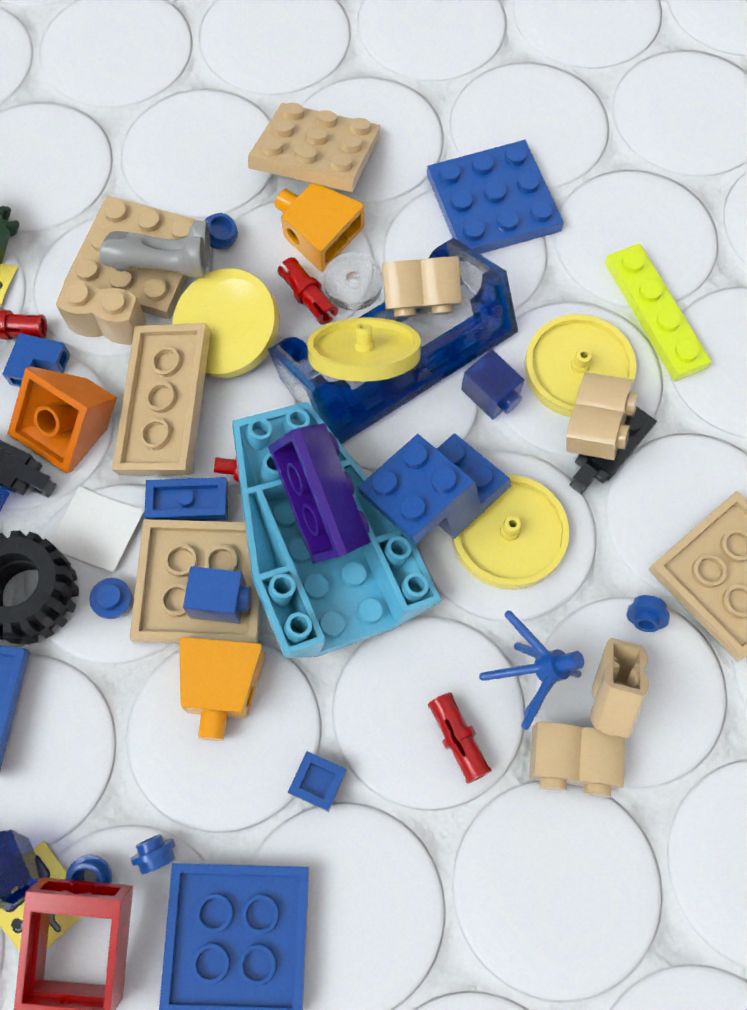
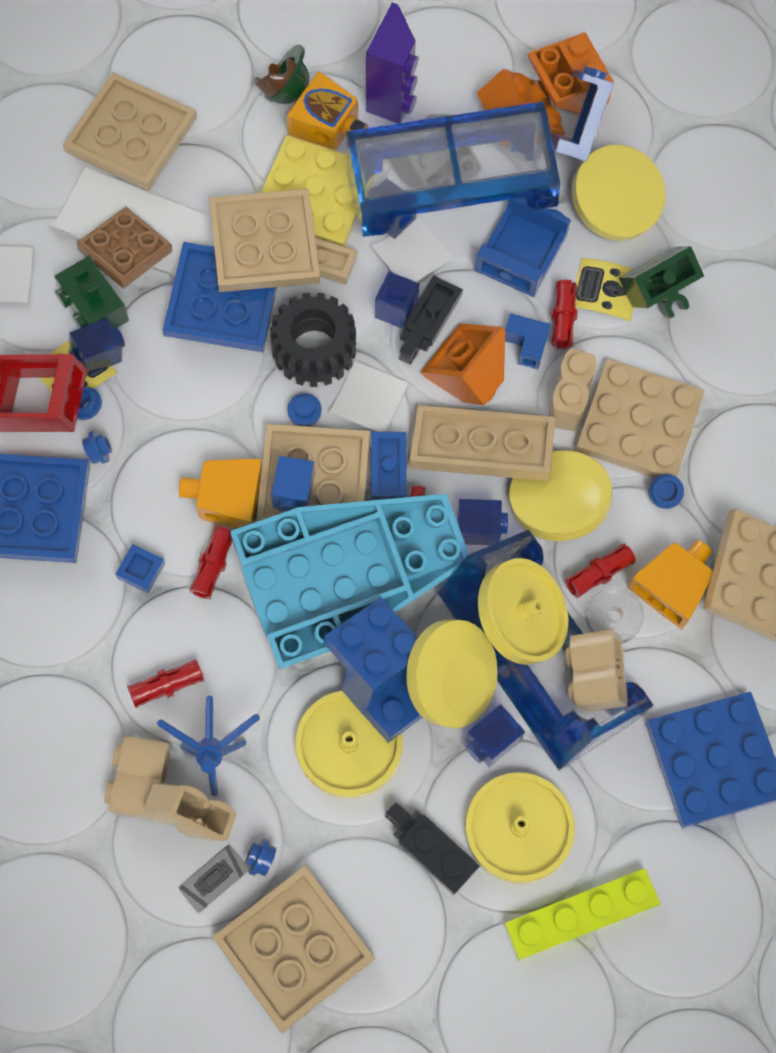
camera: 90 degrees right, 0 degrees up
(134, 250) = (627, 455): light grey piece -> none
(254, 394) = (481, 521): none -> clear blue brick
(306, 694) = (212, 563): none -> red pin
(319, 492) = (369, 563): dark purple slope -> none
(435, 418) = (452, 673): none -> light yellow piece
(600, 416) = (451, 828): tan brick -> none
(673, 669) = (213, 878): none -> sticker

